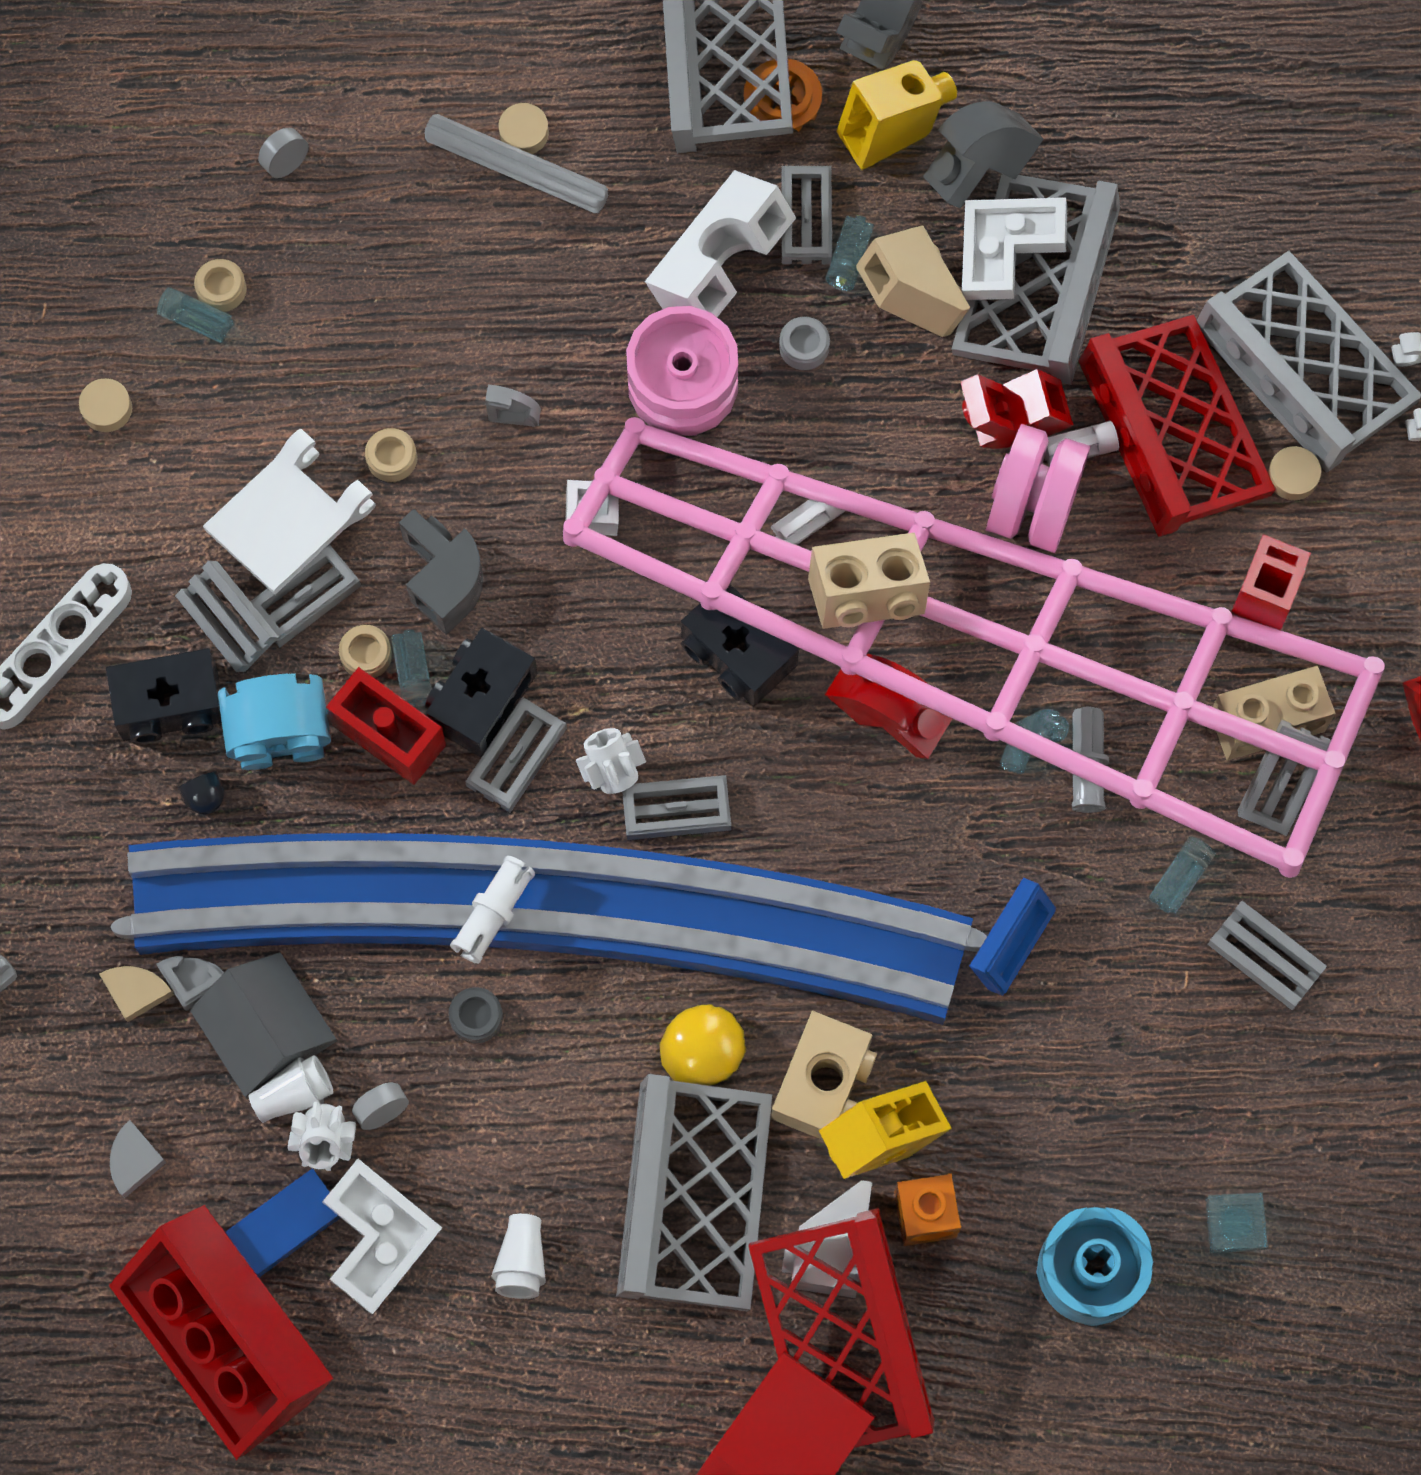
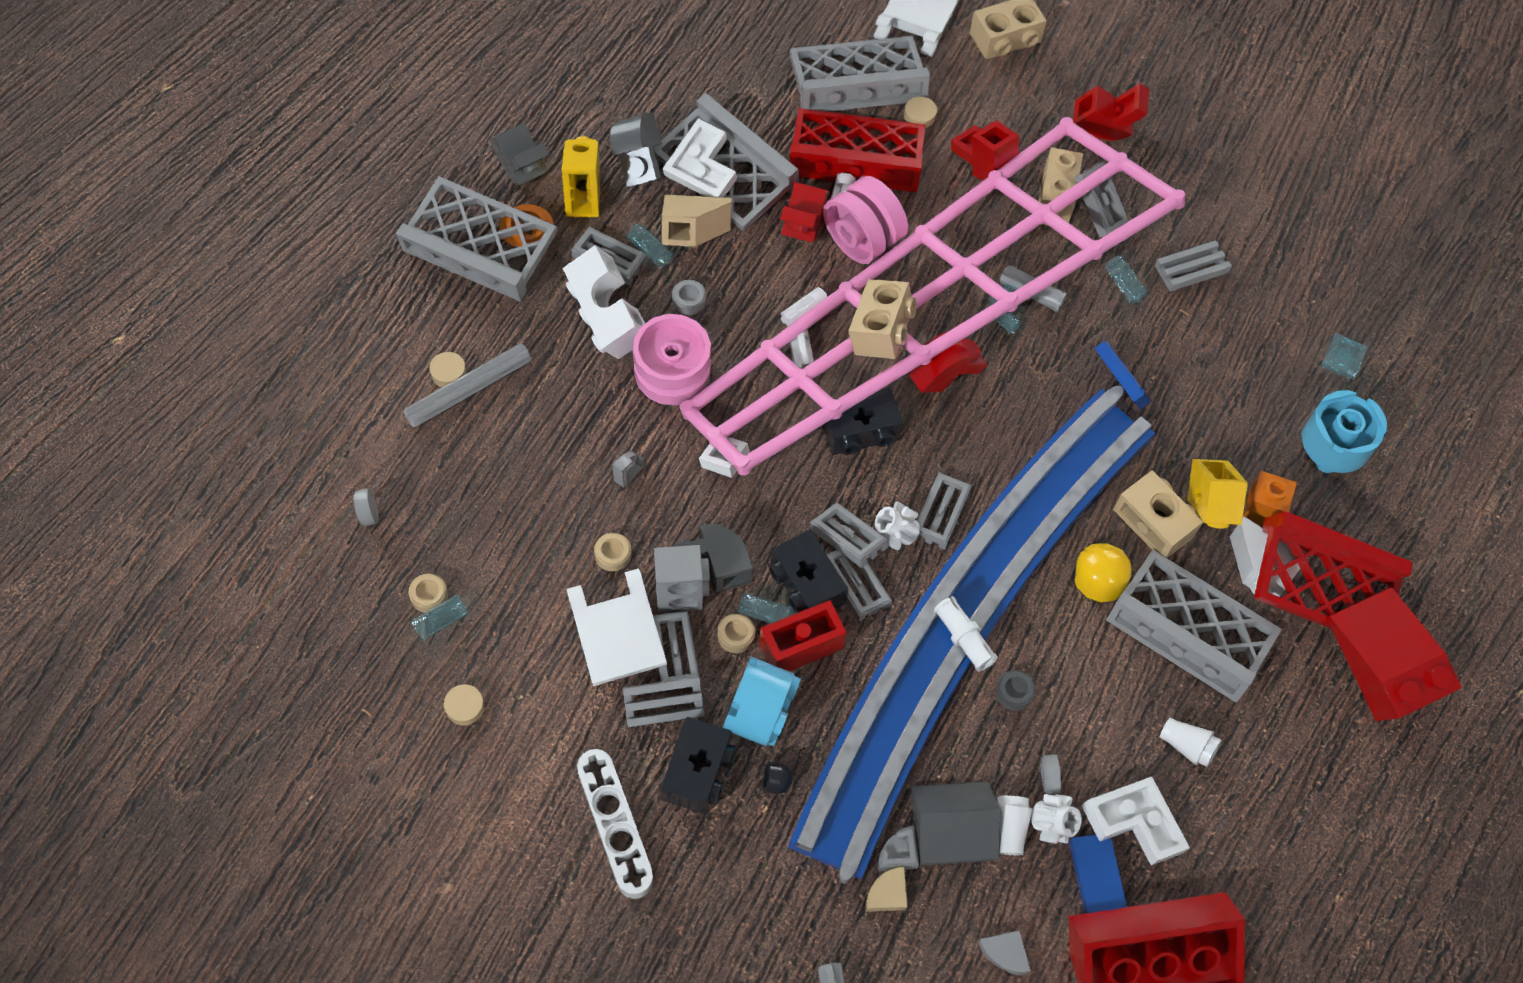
camera: 65 degrees left, 10 degrees down
(378, 543) = (680, 578): none -> light grey brick
(554, 742) = (843, 537): none -> light grey tile
(874, 486) = (803, 305): none -> white piece

